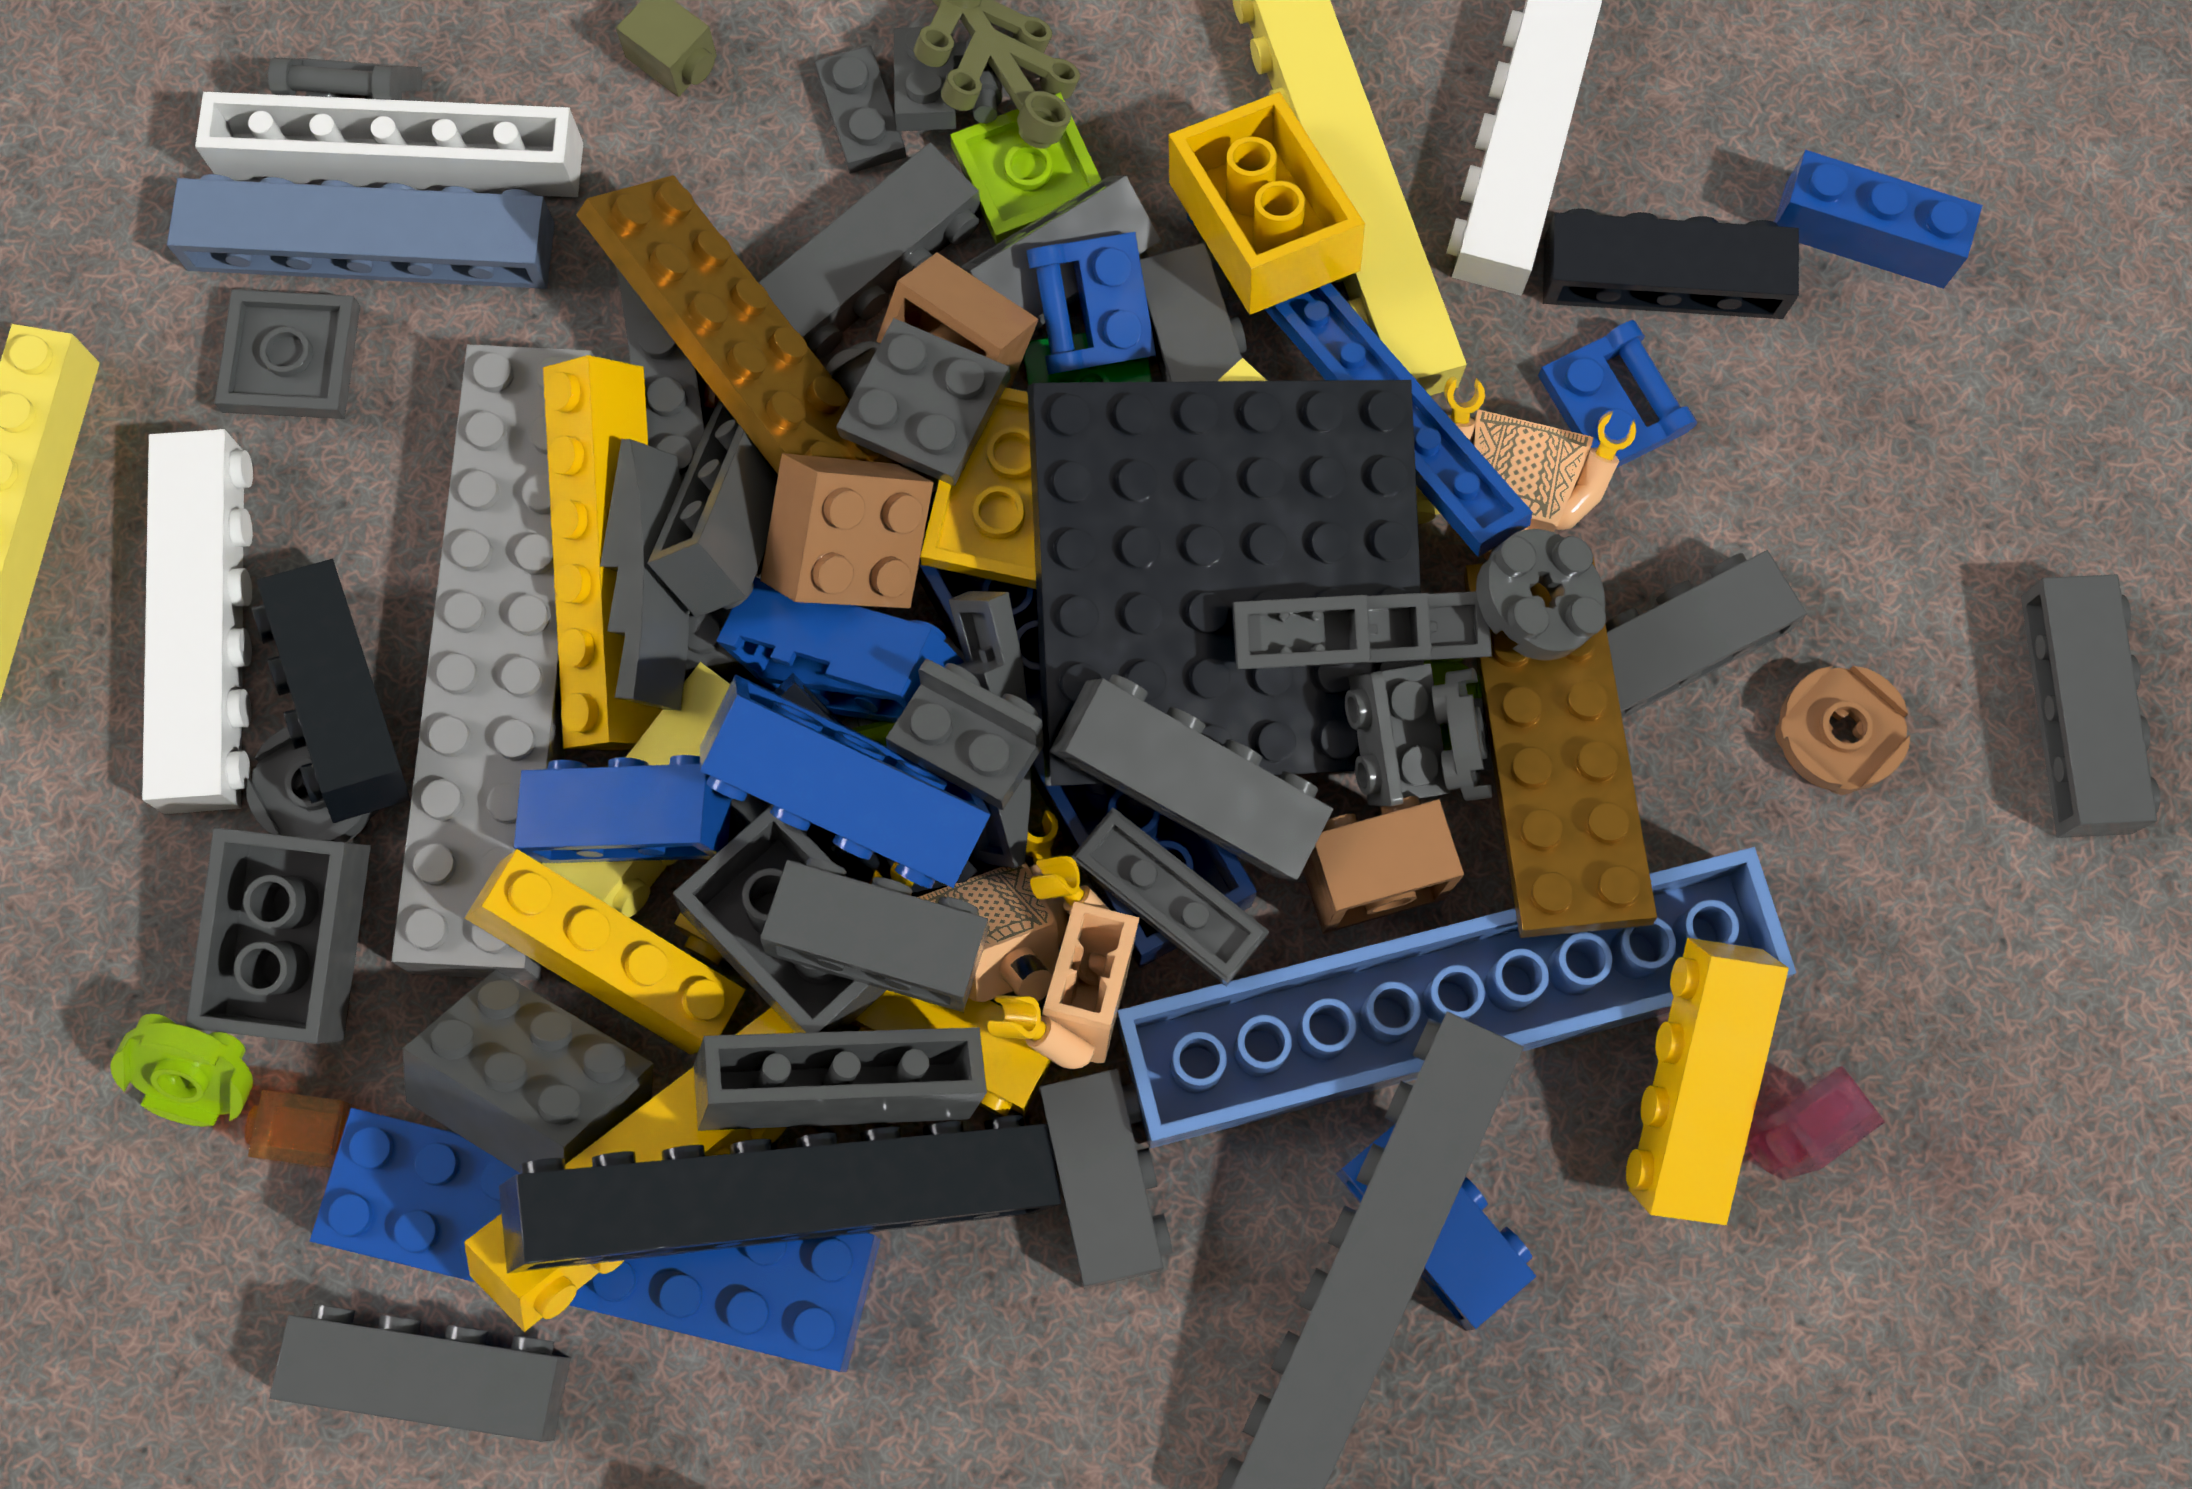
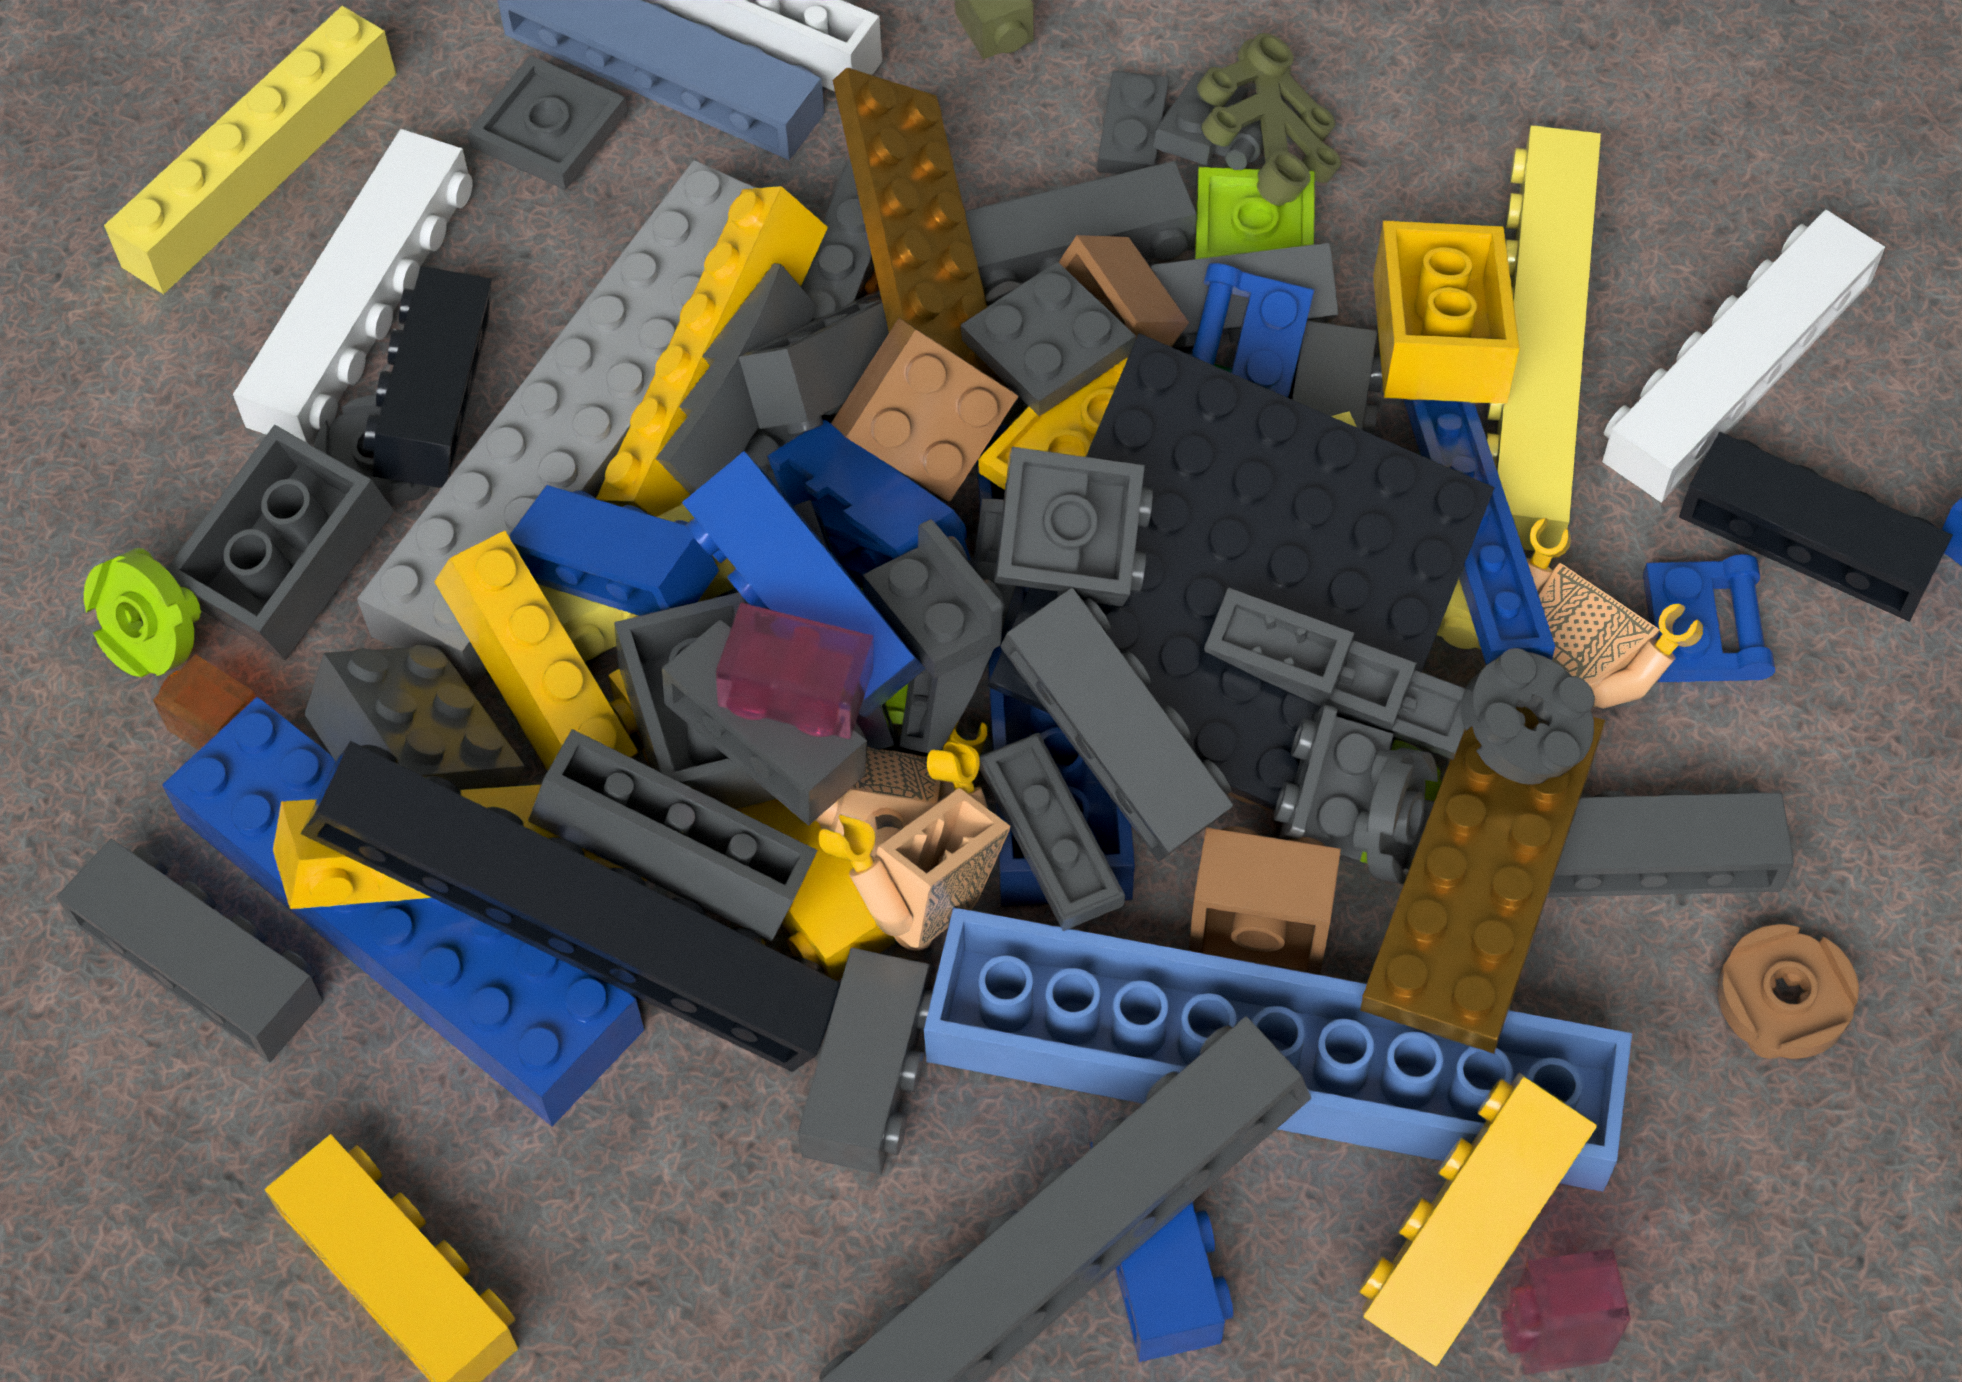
camera: 30 degrees right, 15 degrees down
(895, 892) = (794, 671): none -> clear pink brick
(1072, 615) = (1073, 525): none -> dark grey plate

